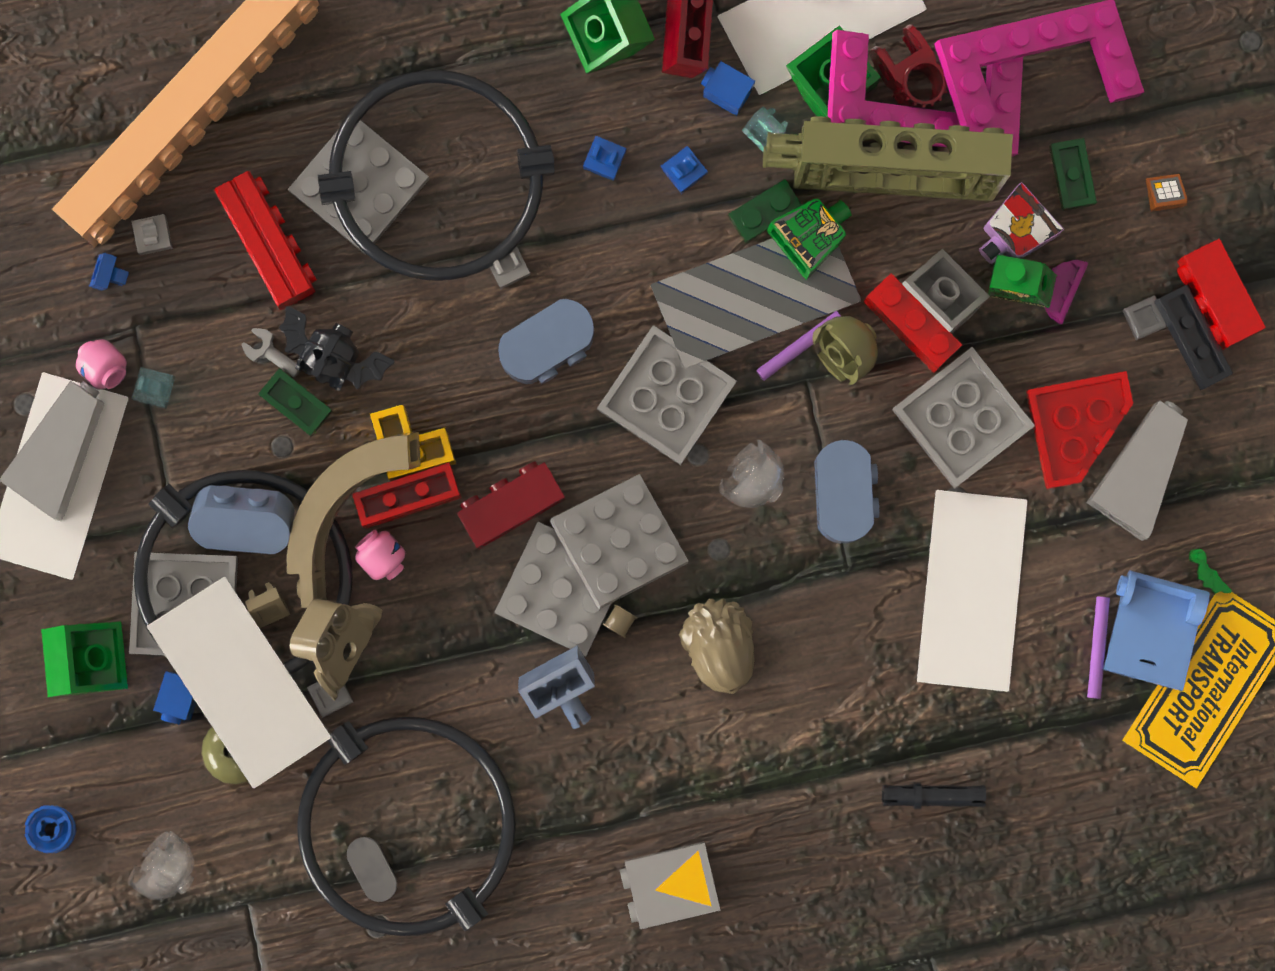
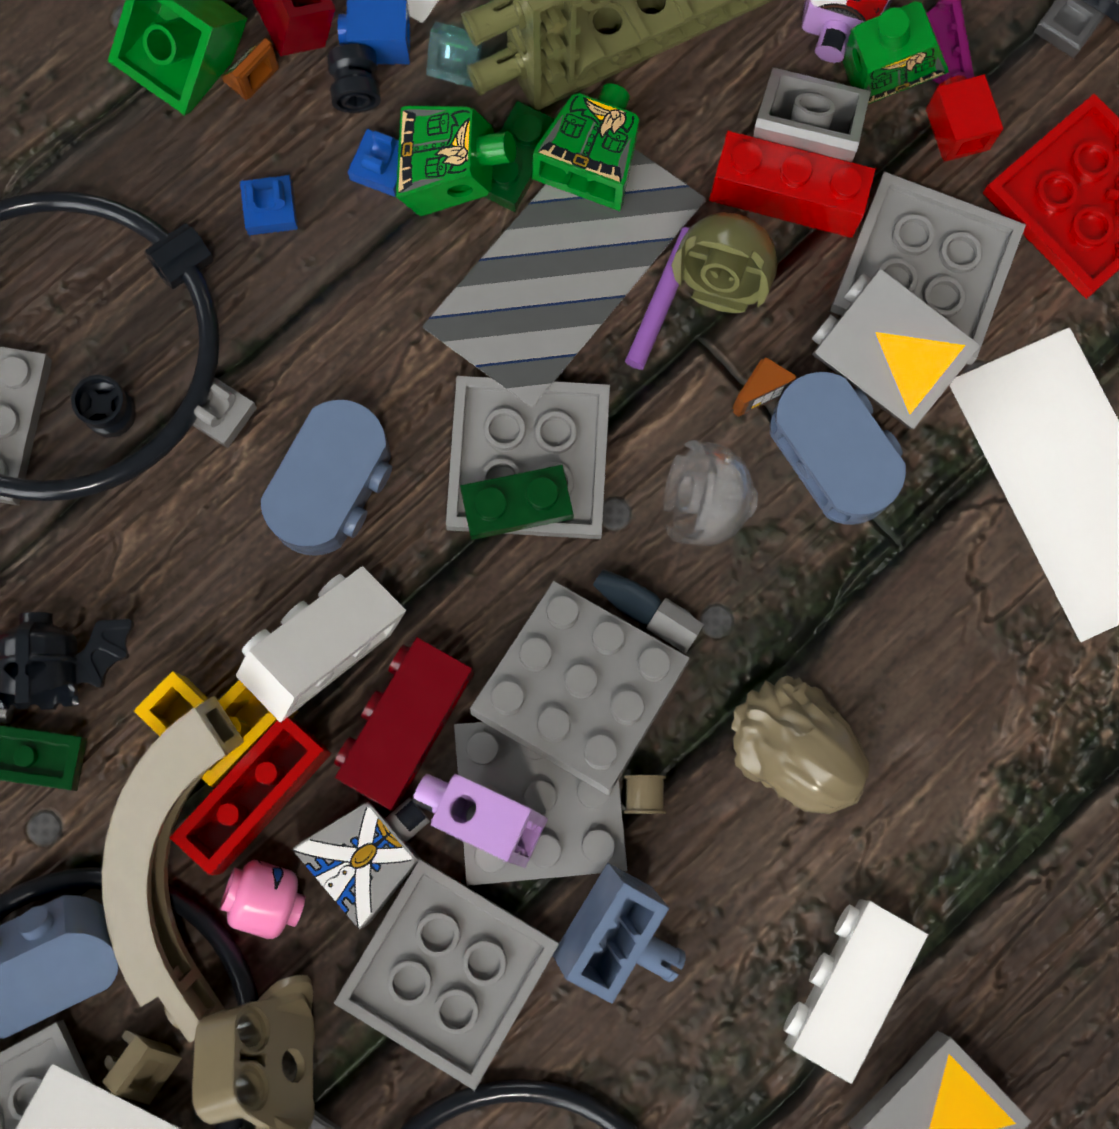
camera: 30 degrees left, 5 degrees down
(441, 222) = (96, 397): none -> black wheel
(448, 565) = (364, 857): none -> torso
(456, 652) = (446, 974): none -> light grey plate
(490, 433) = (318, 642): none -> white brick
(528, 589) = (499, 823): none -> lavender torso
(640, 67) = (252, 69): none -> dark orange slope
(643, 418) = (516, 502): none -> dark green plate
(670, 789) = (853, 988): none -> white brick
(688, 530) = (663, 618): none -> piece
(696, 111) = (353, 74): none -> black wheel
(722, 193) = (447, 157): none -> green torso
(823, 432) = (763, 386): none -> dark orange slope
(908, 454) = (893, 347): none -> light grey brick
(1040, 340) = (963, 117): none -> red brick

